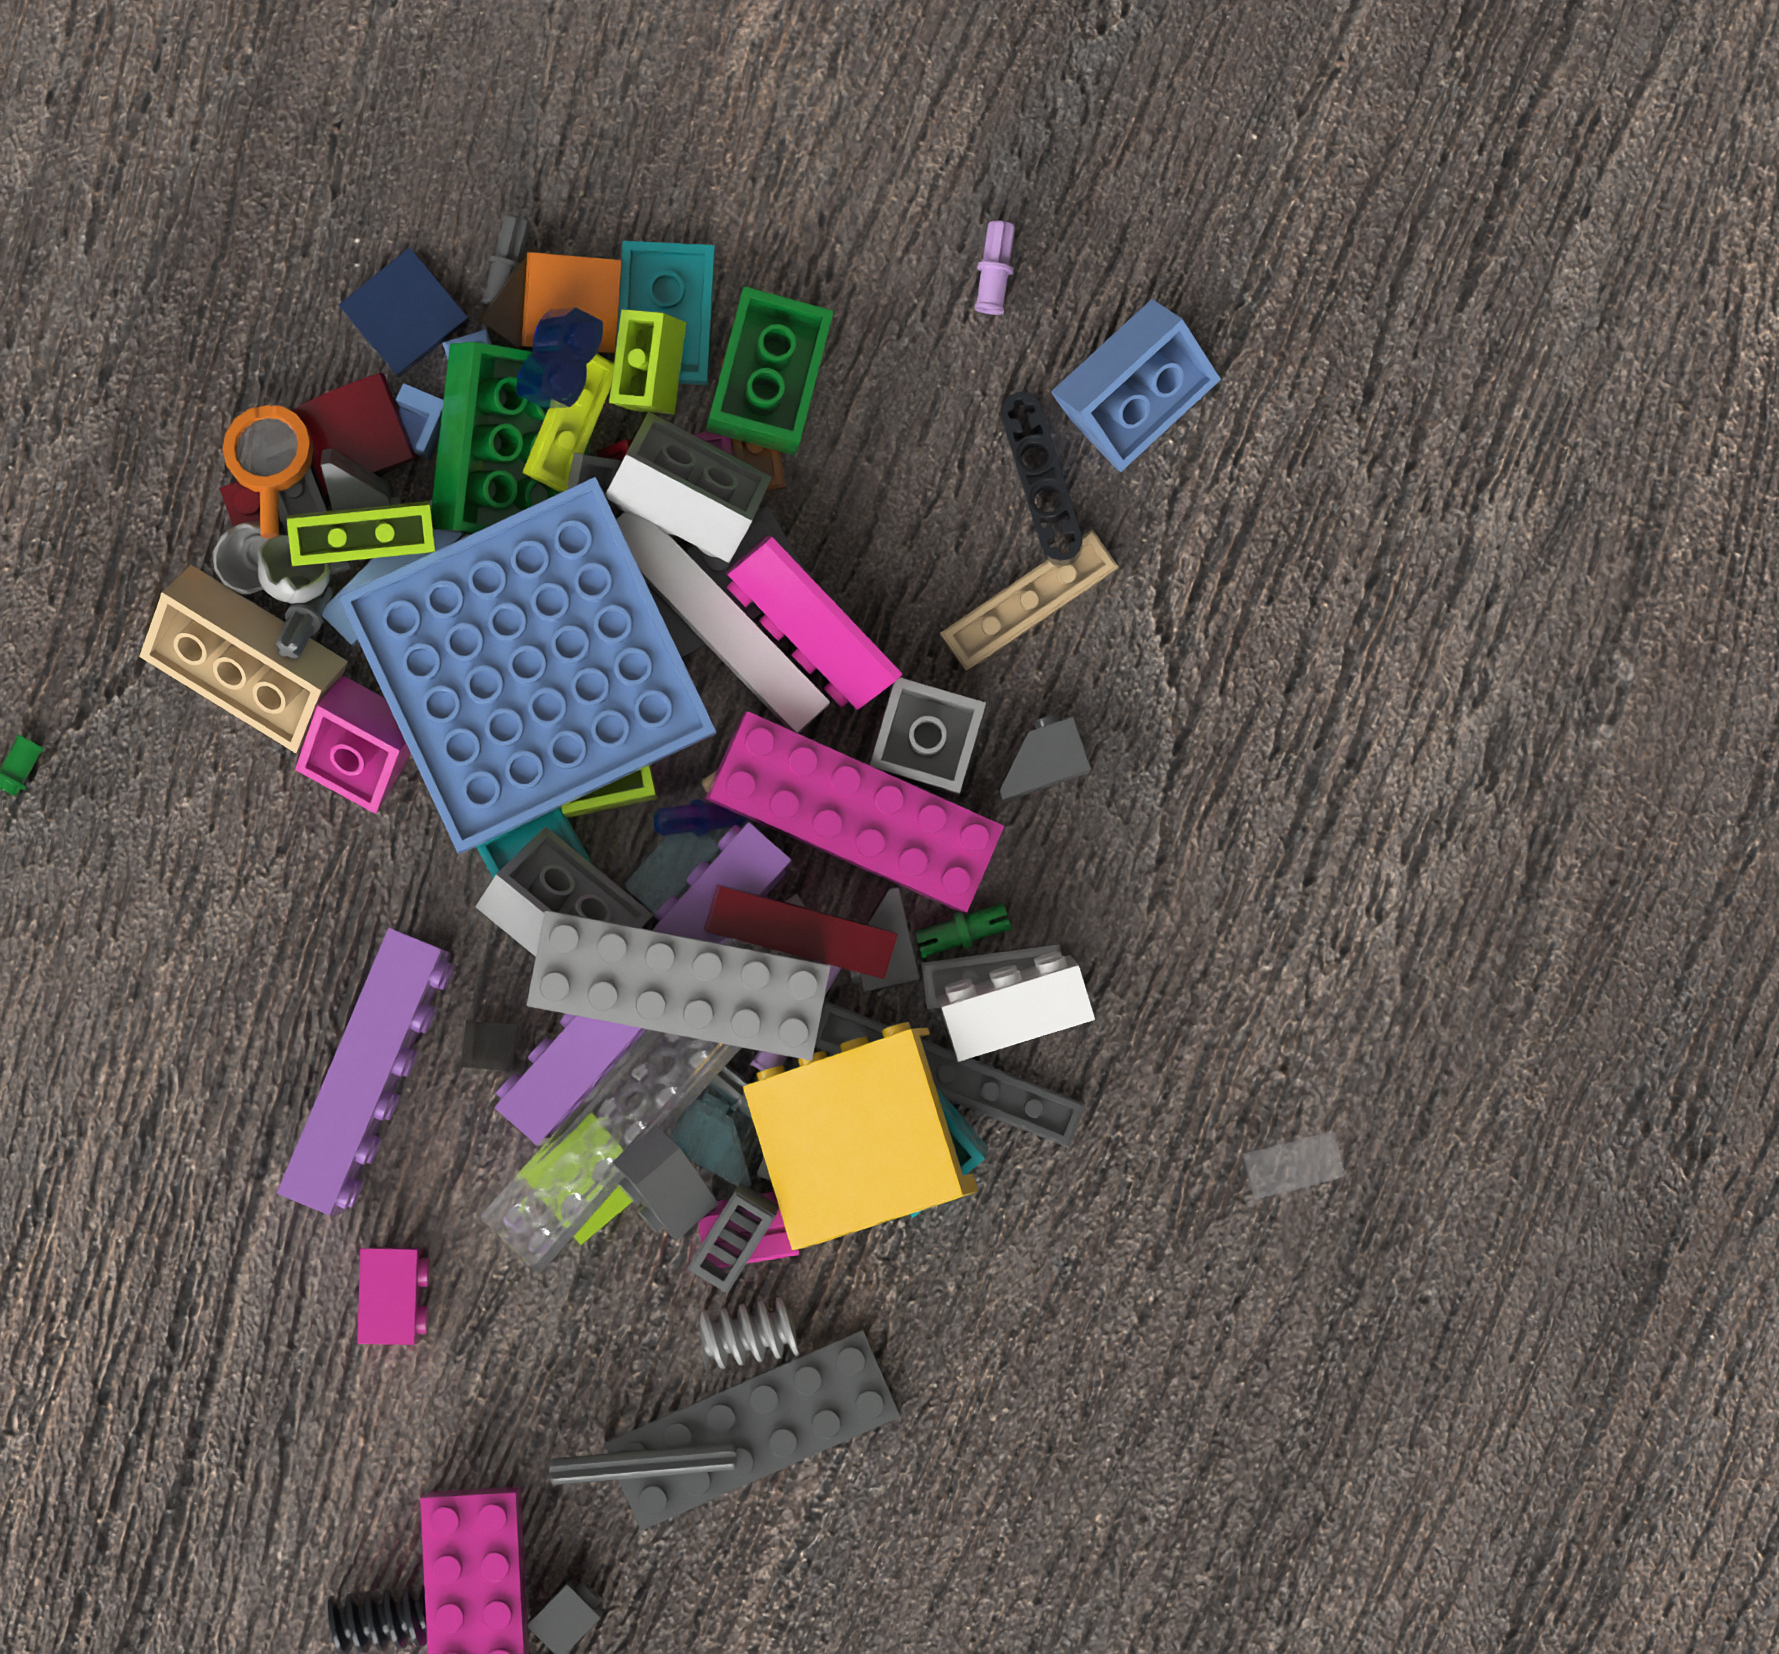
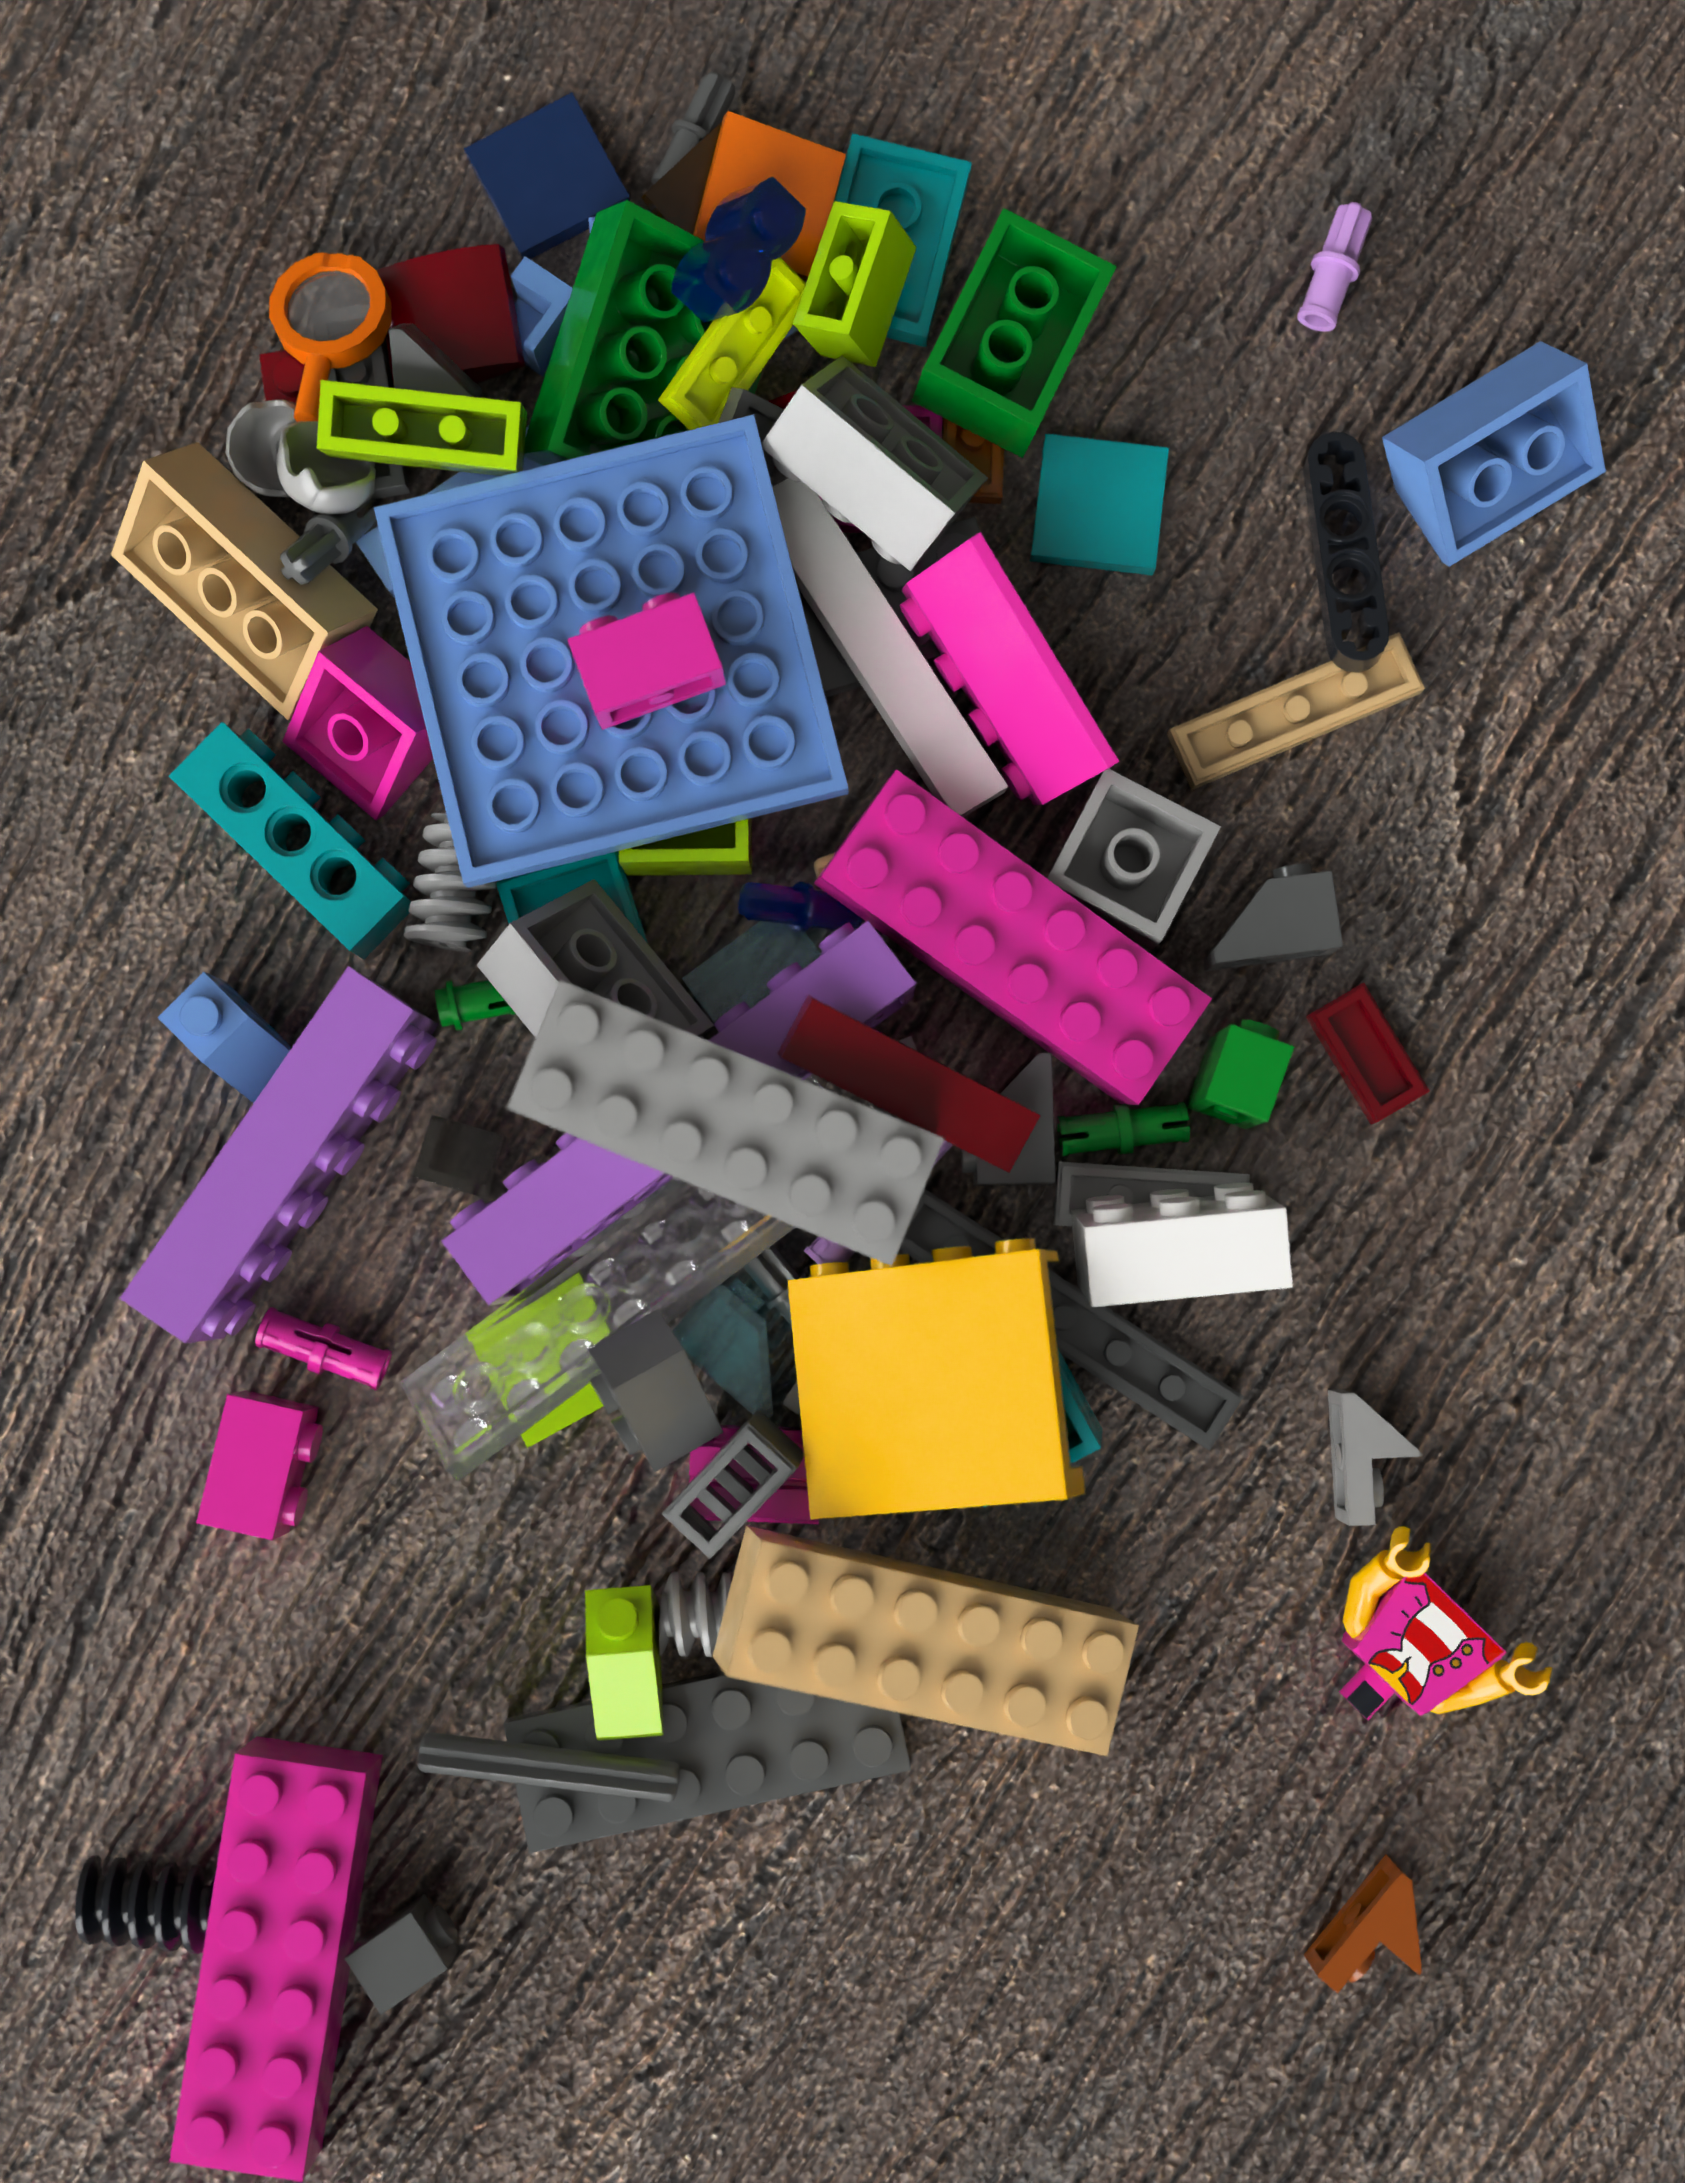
camera: 20 degrees right, 0 degrees up
(255, 810) = (216, 779): none -> teal brick
(308, 995) = (226, 1034): none -> medium blue slope
(419, 1204) = (323, 1348): none -> dark pink pin
(444, 862) = (450, 902): none -> light grey piece
(473, 933) = (469, 1003): none -> green pin
(555, 670) = (646, 659): none -> dark pink brick
(681, 1379) = (624, 1662): none -> lime slope
(857, 477) = (1099, 504): none -> teal tile
(890, 1319) = (924, 1642): none -> tan brick
(1035, 875) = (1241, 1074): none -> green brick
(1128, 840) = (1367, 1054): none -> dark red tile
(1171, 1115) = (1356, 1439): none -> light grey slope
(1241, 1251) = (1423, 1642): none -> torso
(1250, 1447) = (1375, 1913): none -> dark orange slope
(1293, 1165) = (1508, 1535): clear tile -> none

